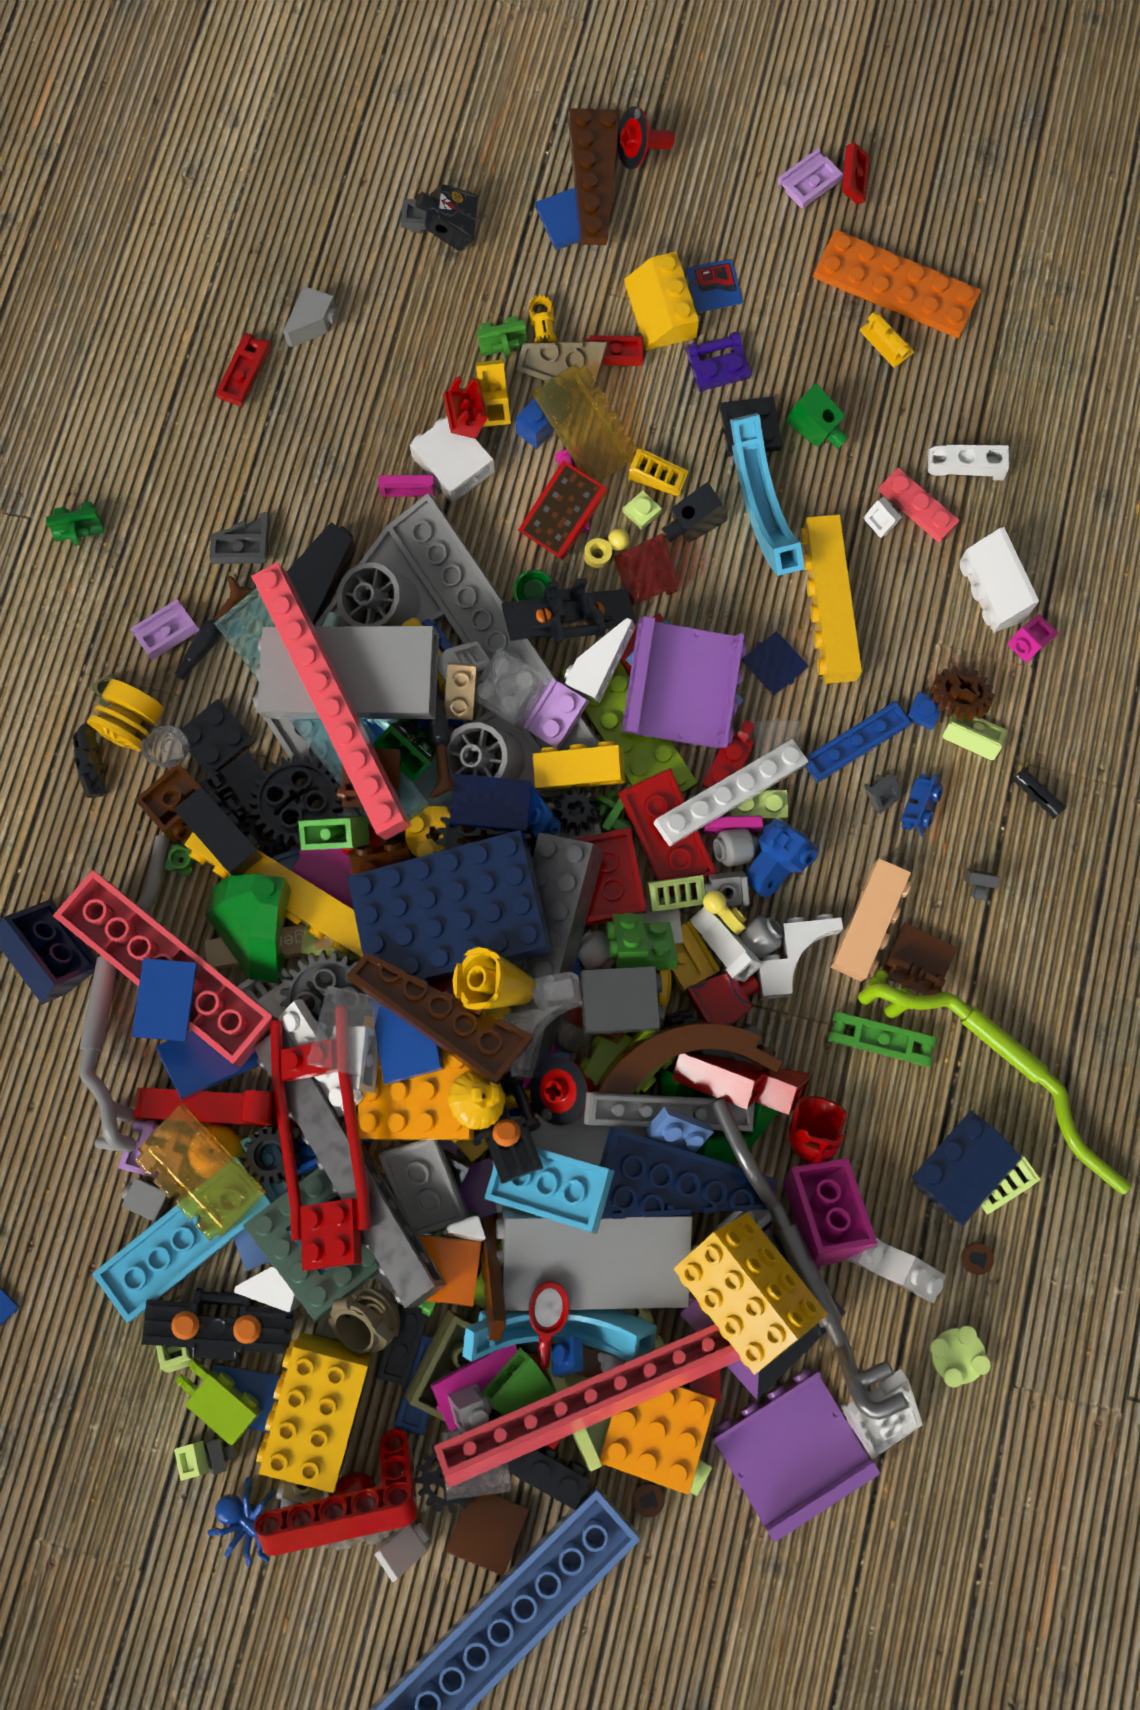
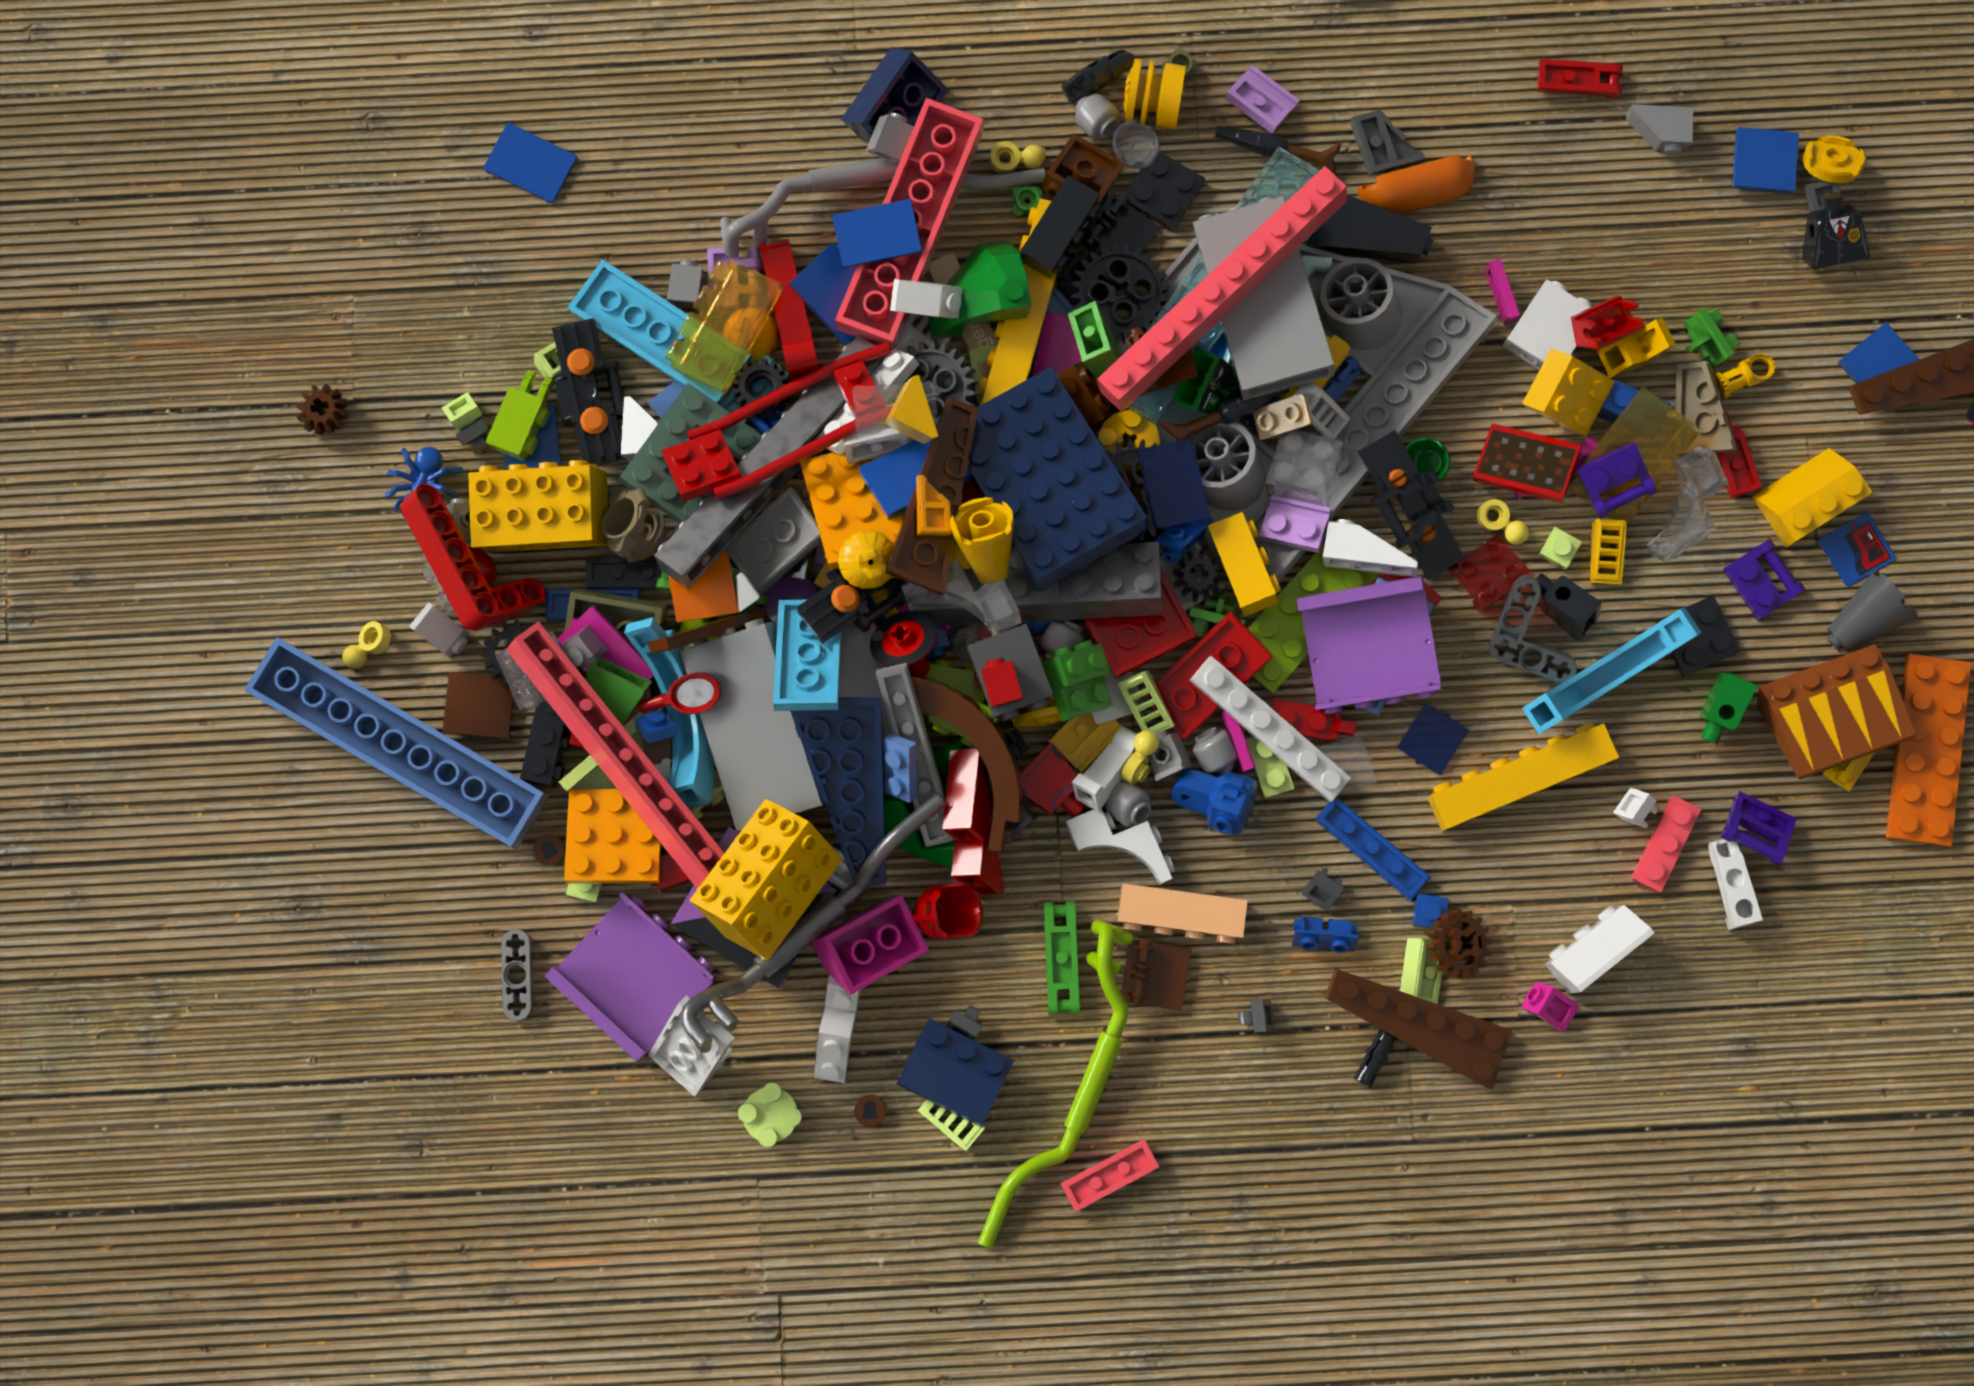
camera: 75 degrees right, 5 degrees up
(77, 961) = (890, 137): none -> light grey brick
(127, 774) = (1097, 116): none -> light grey head
(132, 1616) = (333, 414): none -> reddish brown gear
(141, 842) = (1032, 157): none -> light yellow plate
(243, 971) = (926, 298): none -> white slope
(290, 520) = (1421, 185): none -> orange brick
(352, 1011) = (912, 413): none -> yellow slope
(367, 250) = (1765, 160): none -> blue tile
(386, 197) = (1834, 159): none -> yellow tile
(387, 1621) = (372, 639): none -> light yellow plate
(451, 1022) = (932, 510): none -> light orange tile
(514, 455) = (1568, 392): none -> yellow brick
(594, 441) = (1612, 471): none -> dark purple plate
(633, 1009) = (1001, 682): none -> red brick
(653, 397) = (1690, 523): none -> clear arch
(709, 565) = (1515, 636): none -> dark grey beam
(767, 1582) = (507, 998): none -> light grey beam
(774, 286) = (1870, 614): none -> dark grey cone
(850, 335) = (1835, 711): none -> dark orange slope
(921, 1146) = (965, 1023): none -> dark grey tile
(923, 421) = (1763, 821): none -> dark purple plate
(1036, 730) = (1444, 1034): none -> reddish brown wing
(1090, 1056) = (1109, 1175): none -> coral plate

